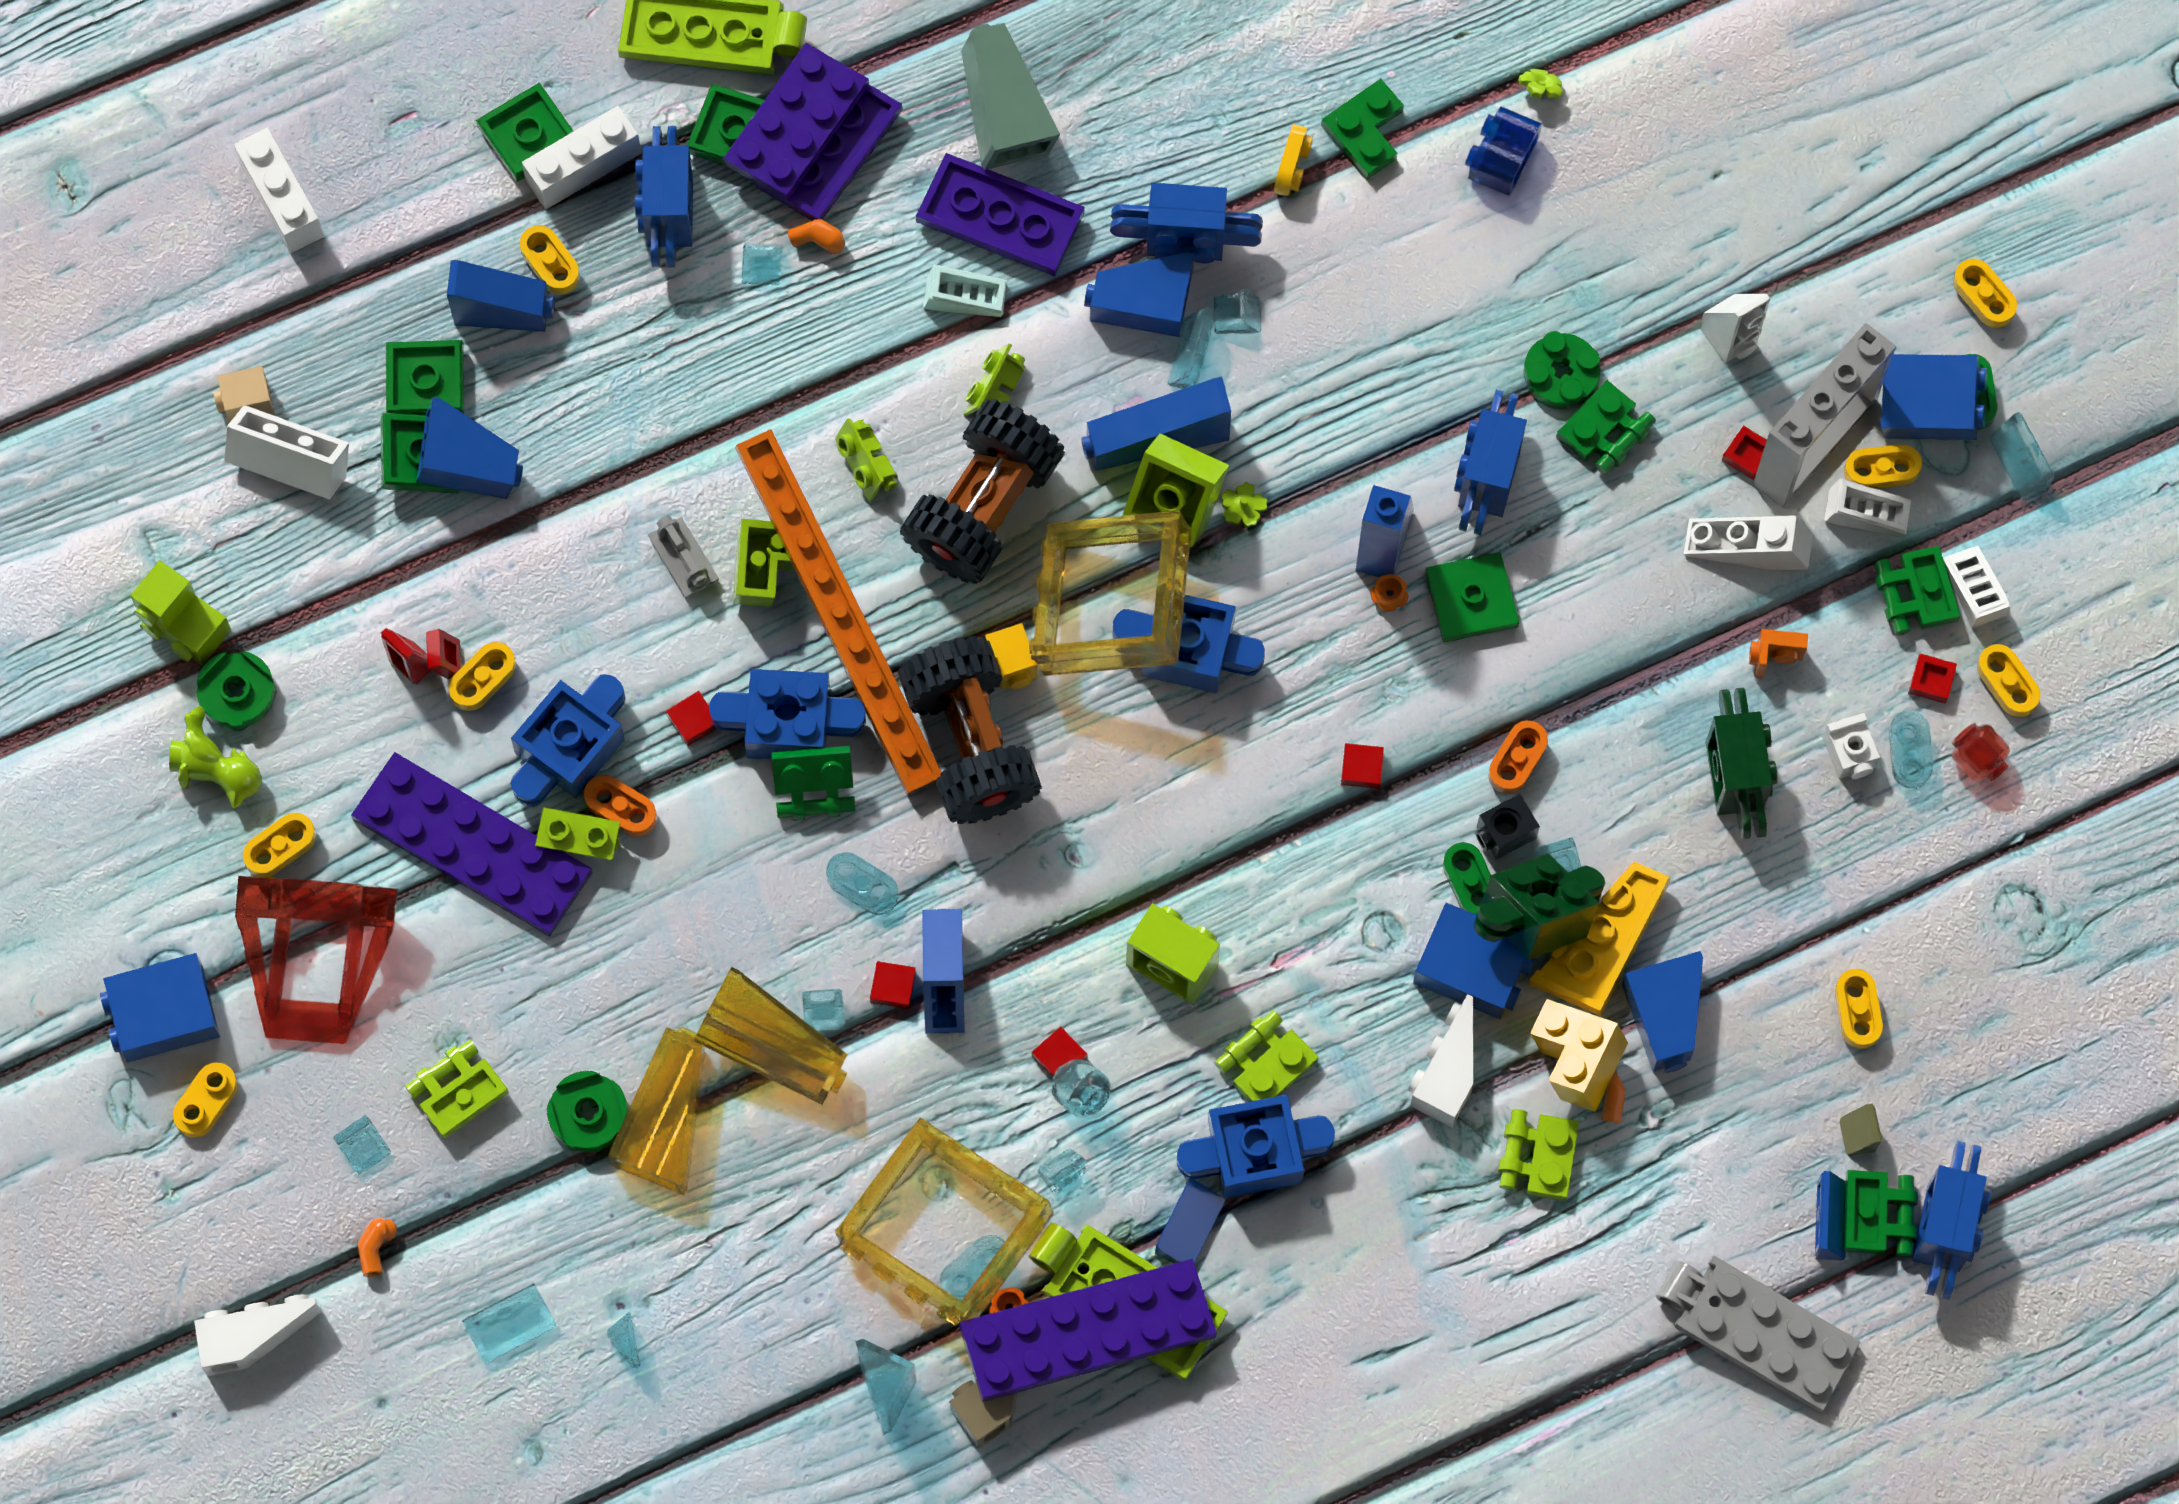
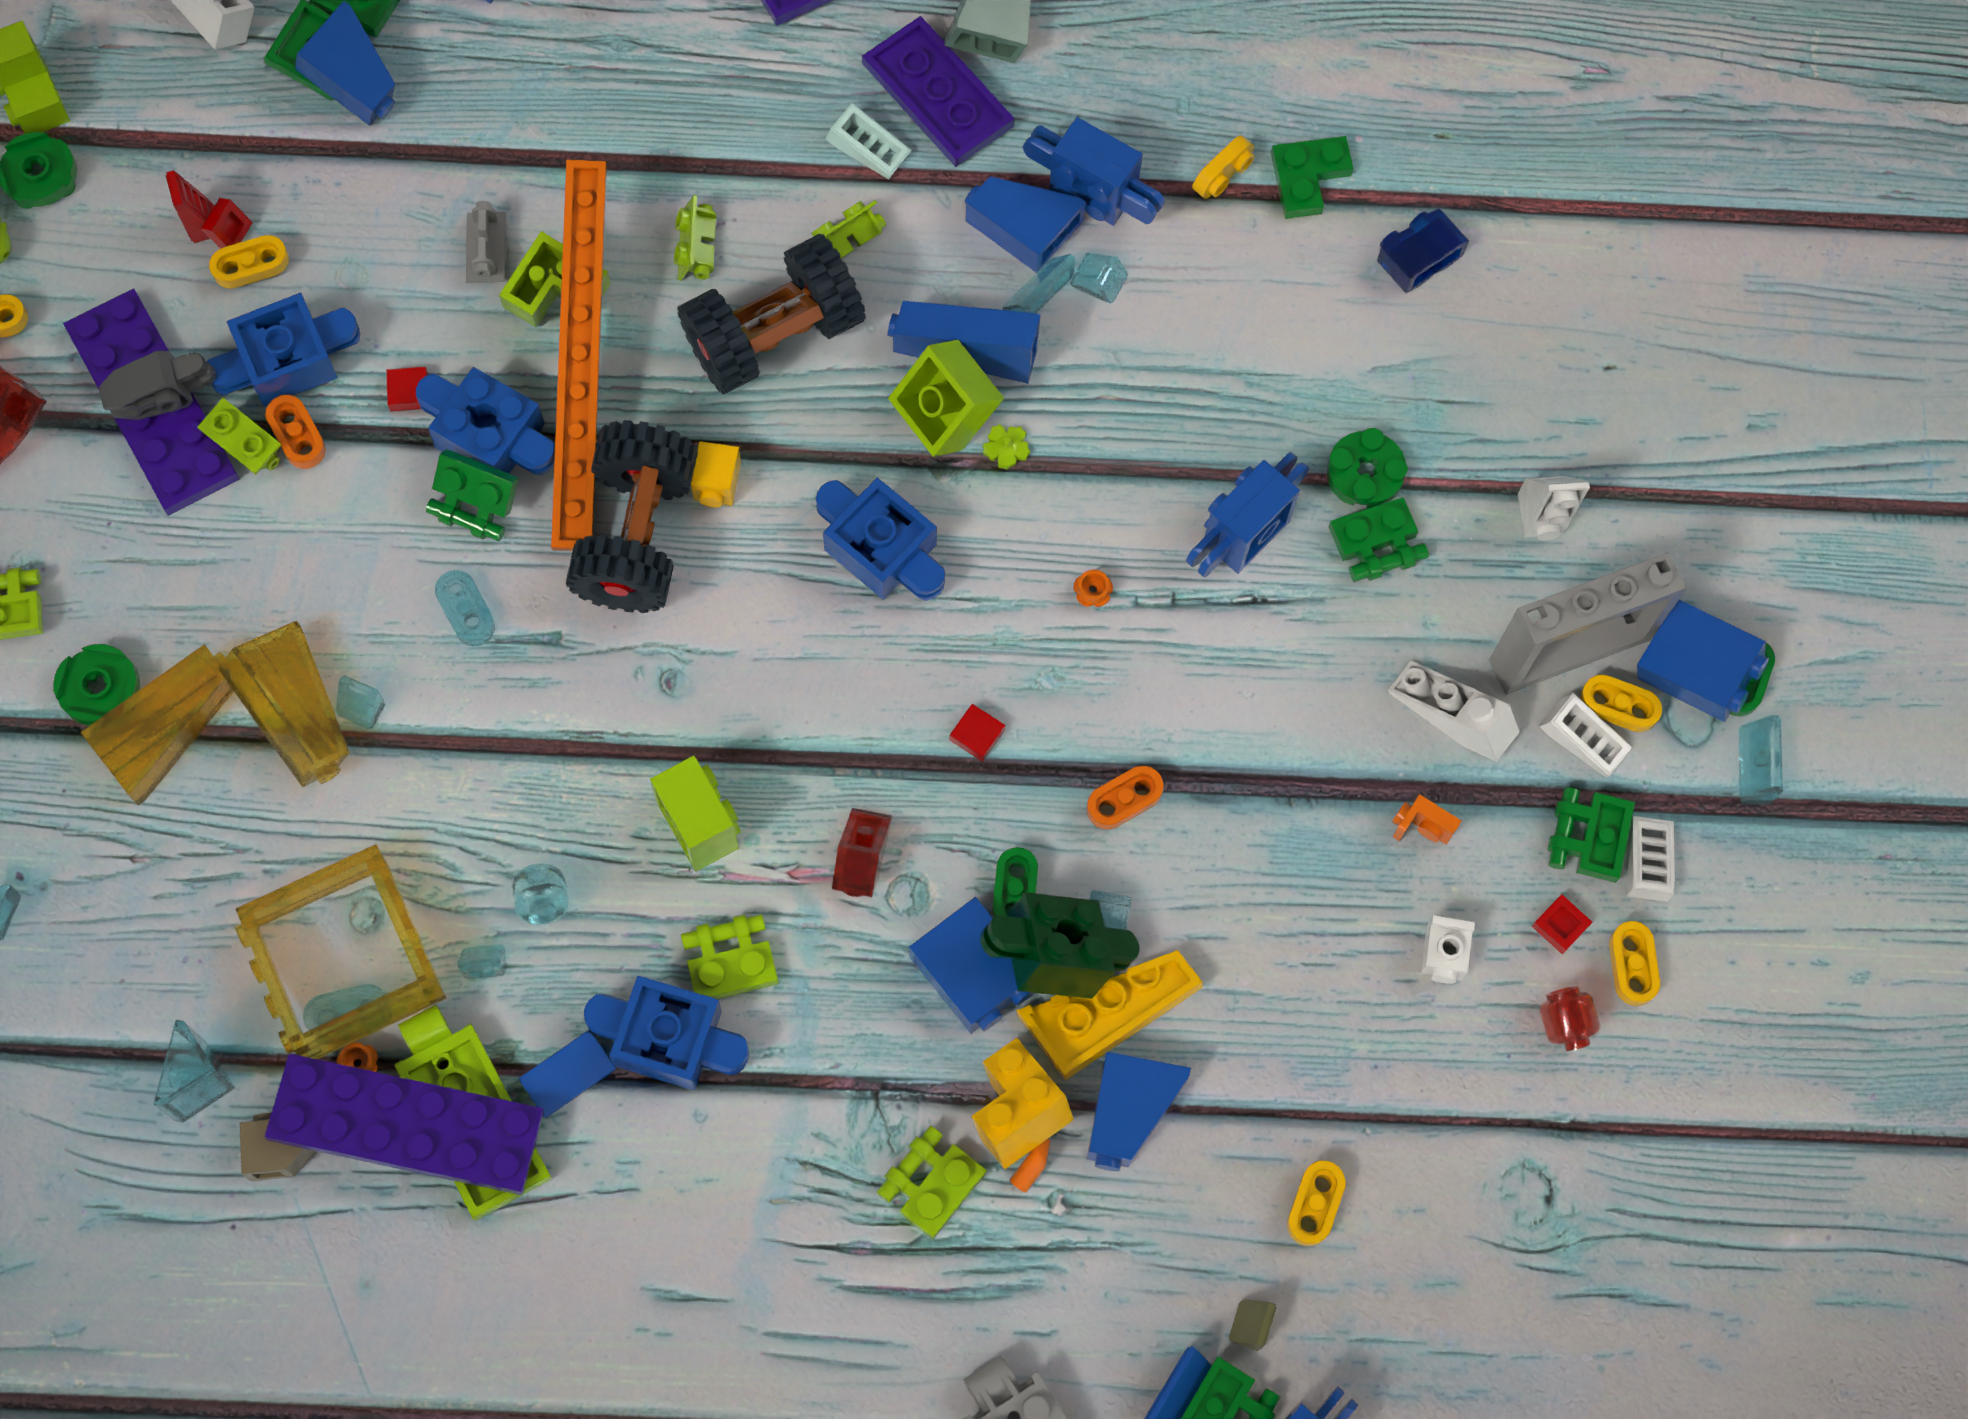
camera: 25 degrees right, 0 degrees up
(481, 826) = (155, 385): none -> dark grey hinge
(761, 263) = (707, 34): clear light blue slope -> none
(819, 232) = (771, 32): orange arm -> none
(893, 985) = (435, 712): red tile -> none
(943, 971) = (482, 721): slope -> none
(1057, 1050) = (546, 848): red tile -> none
(1119, 653) = (872, 490): clear yellow window -> none
(1327, 916) = (861, 853): none -> clear red slope
(1383, 531) = (1112, 525): blue slope -> none
(1449, 1077) = (887, 1062): white slope -> none
(1472, 597) = (1166, 631): green plate -> none
(1514, 813) = (1089, 844): black brick -> none
(1541, 82) = (1491, 208): lime plant -> none
(1740, 763) = (1325, 915): dark green brick -> none
(1745, 452) = (1493, 624): red tile -> none
(1911, 751) = (1503, 982): clear light blue plate -> none
(1986, 294) = (1806, 594): yellow plate -> none

